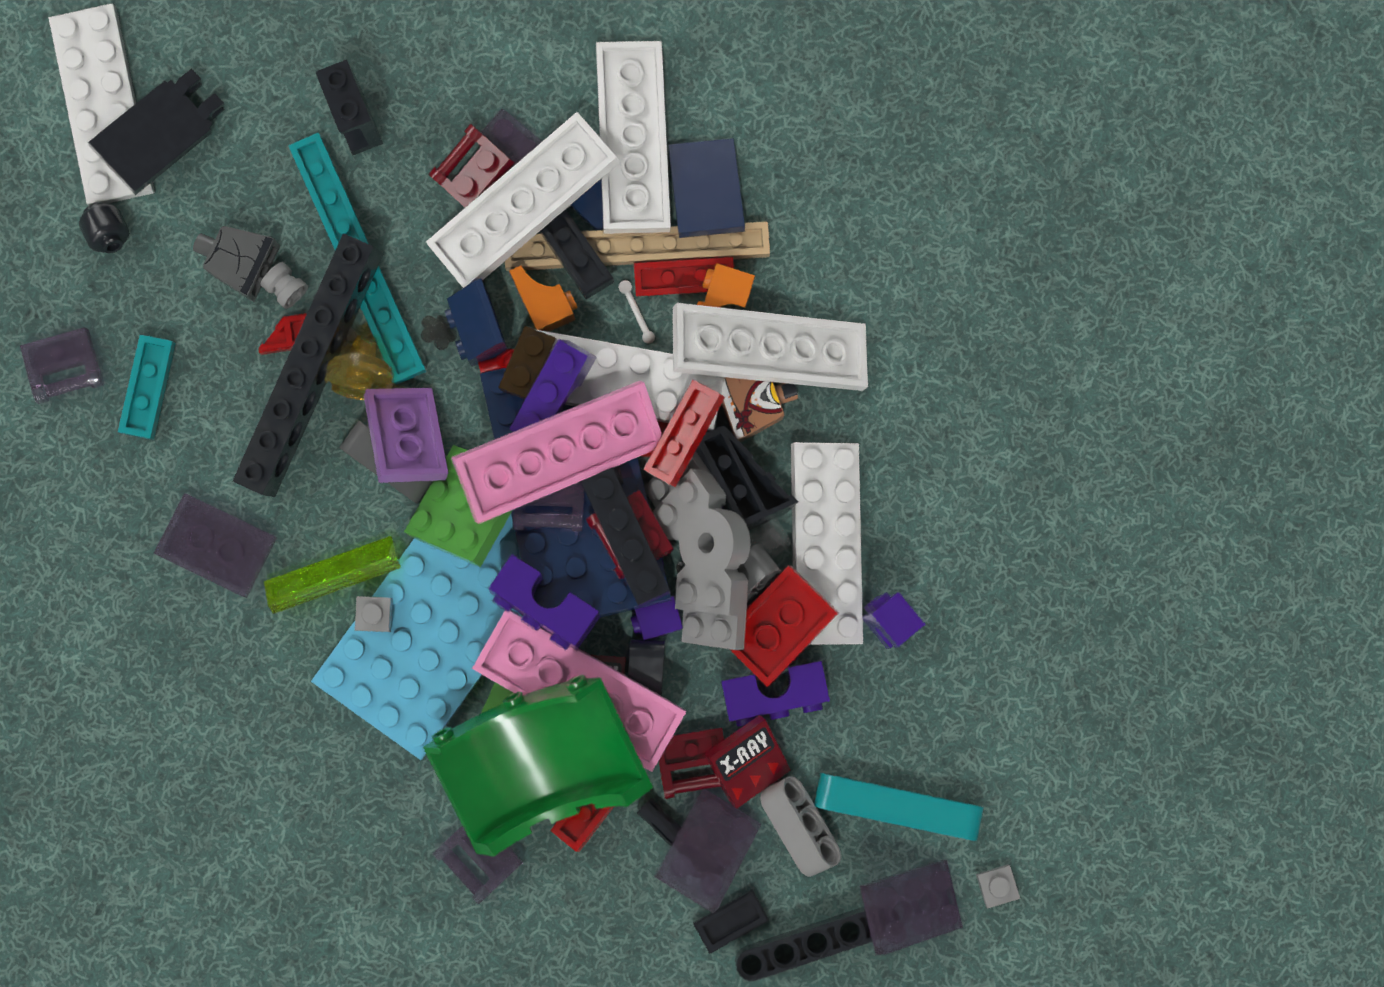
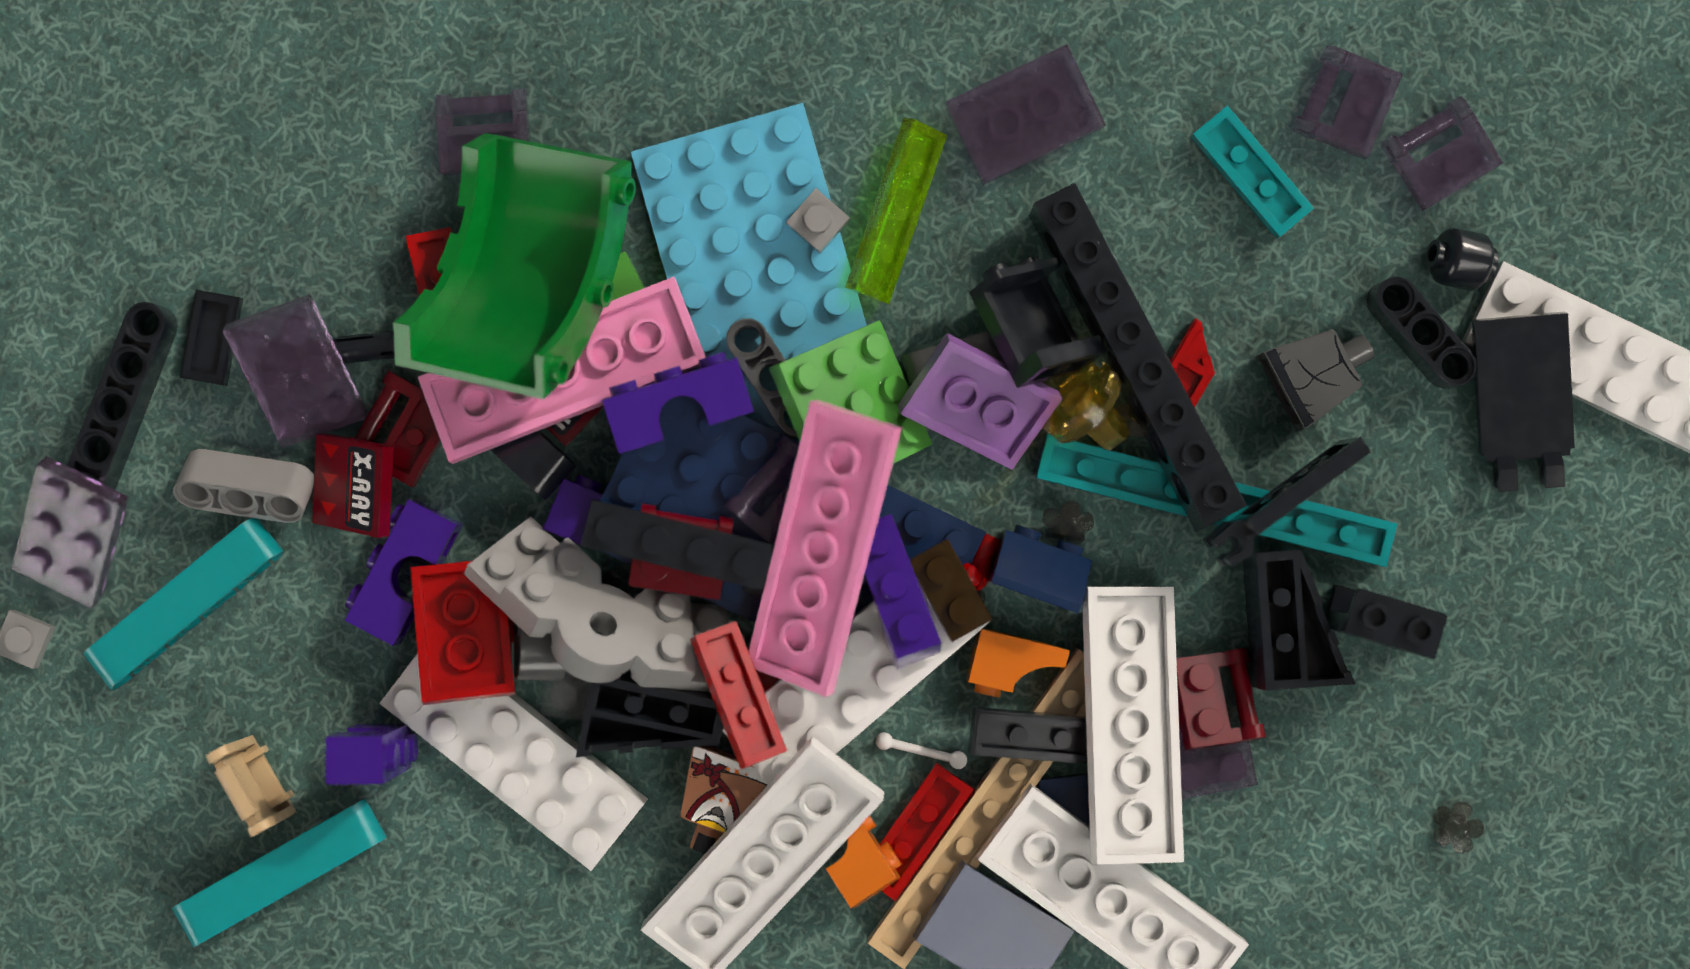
camera: 135 degrees right, 5 degrees up
(54, 277) = (1449, 166): none -> clear purple plate
(159, 204) = (1441, 340): none -> black beam
(284, 285) = (1243, 401): light grey wheel -> none
(322, 216) = (1284, 499): none -> black tile
(336, 441) = (1030, 323): none -> black panel
(396, 160) = (1287, 625): none -> black wedge
(475, 579) = (755, 363): none -> dark grey beam
(967, 675) = (251, 784): none -> tan container
(1007, 621) = (279, 872): none -> teal beam

